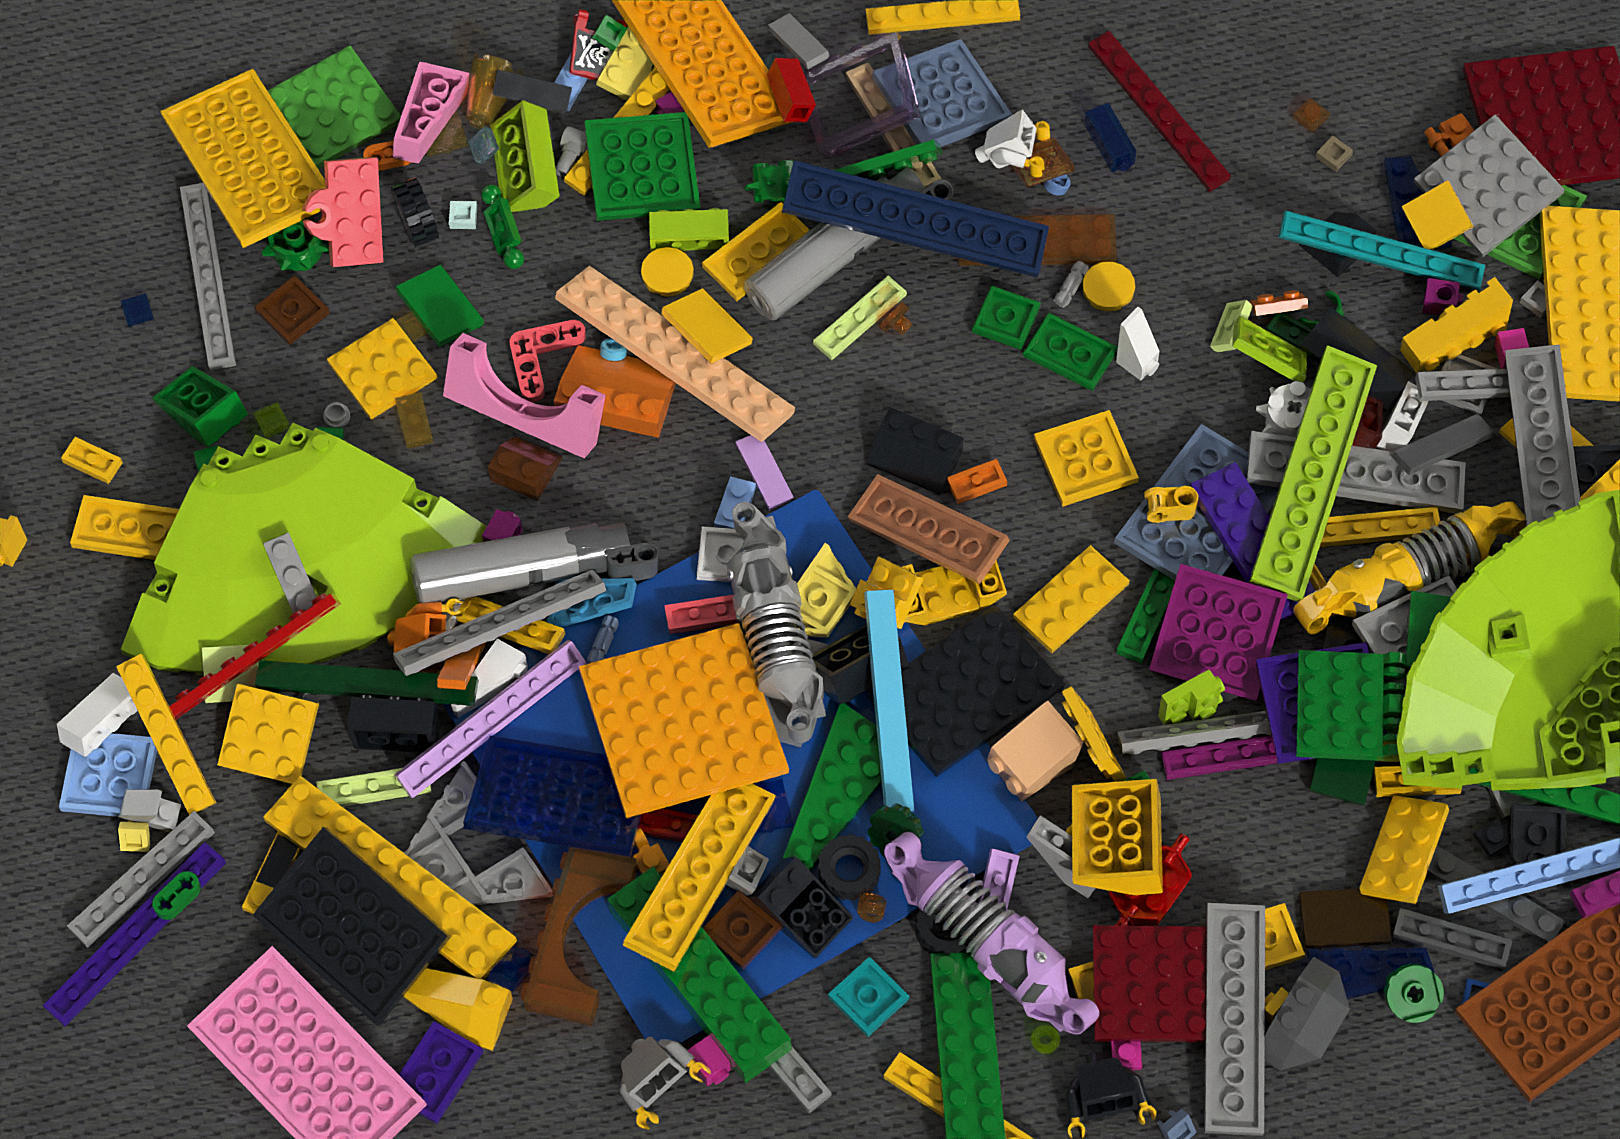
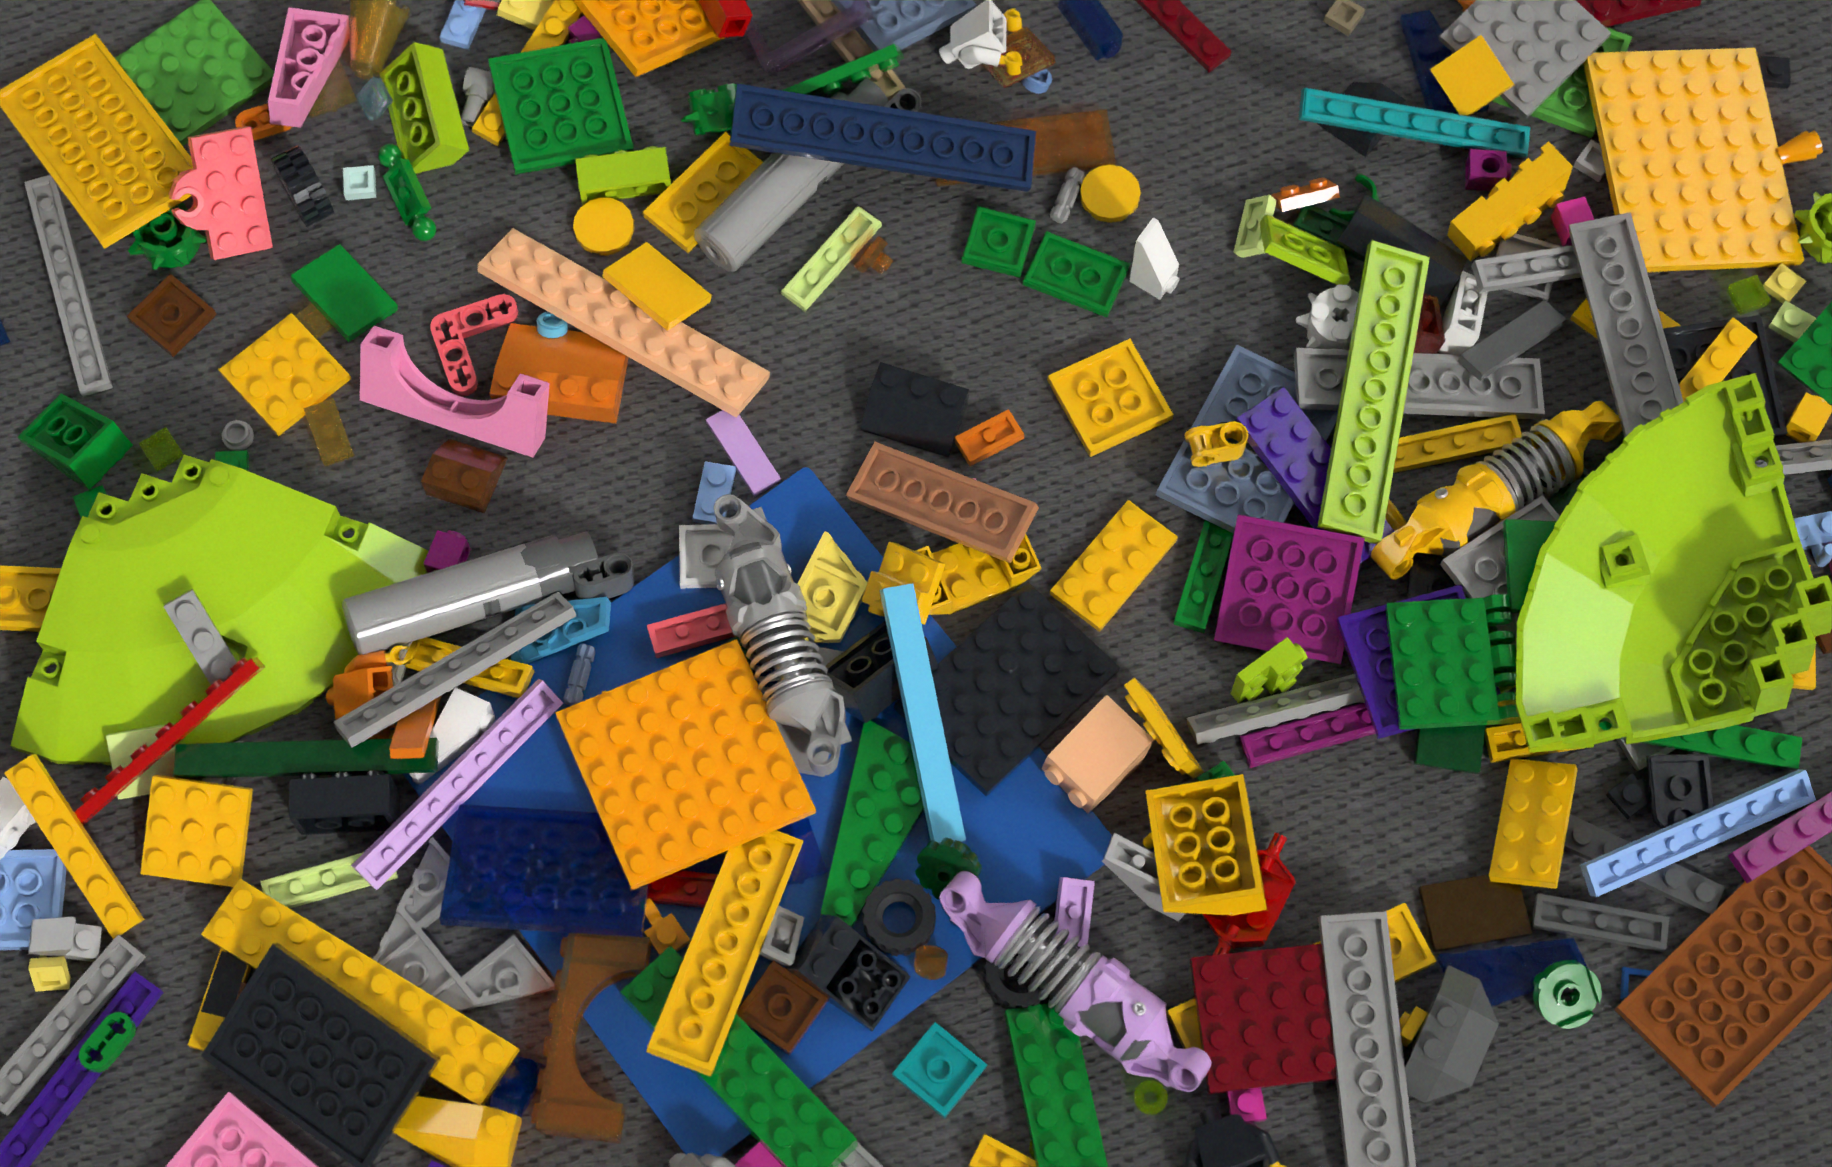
camera: 10 degrees left, 5 degrees up
(531, 90) = (422, 28): black tile -> none

